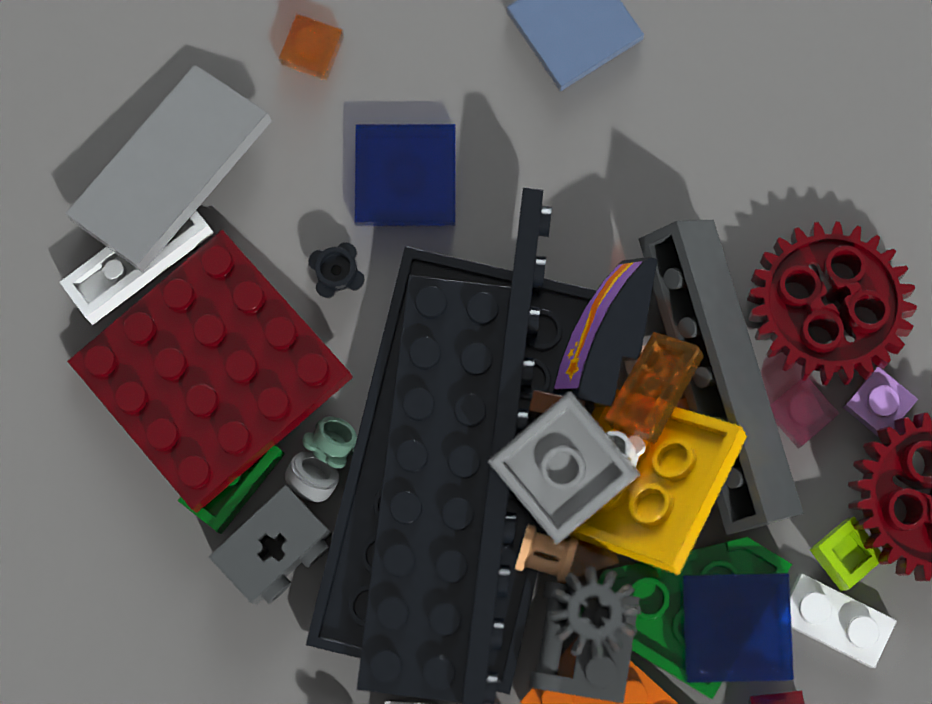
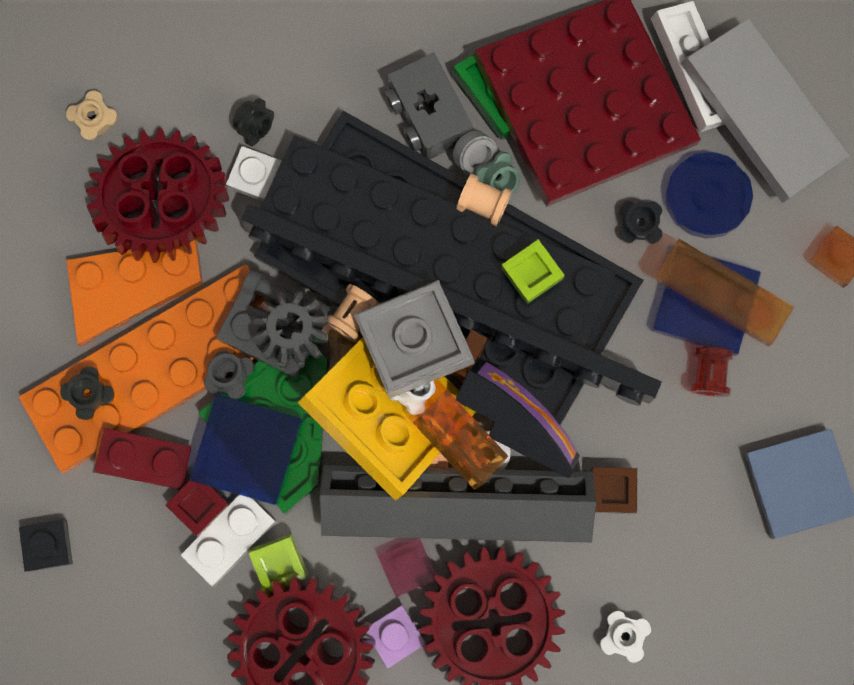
camera: 105 degrees right, 0 degrees up
(282, 205) = (708, 195): none -> clear blue tile
(370, 445) = (483, 199): none -> light nougat bush
(395, 155) = (724, 292): none -> clear orange plate
(443, 361) = (532, 271): none -> lime plate
(495, 135) = (706, 357): none -> clear red bush
(645, 211) = (615, 490): none -> reddish brown plate
(648, 686) = (220, 366): none -> dark grey plate
(789, 171) = (613, 642): none -> white plate
(816, 666) = (197, 506): none -> dark red plate

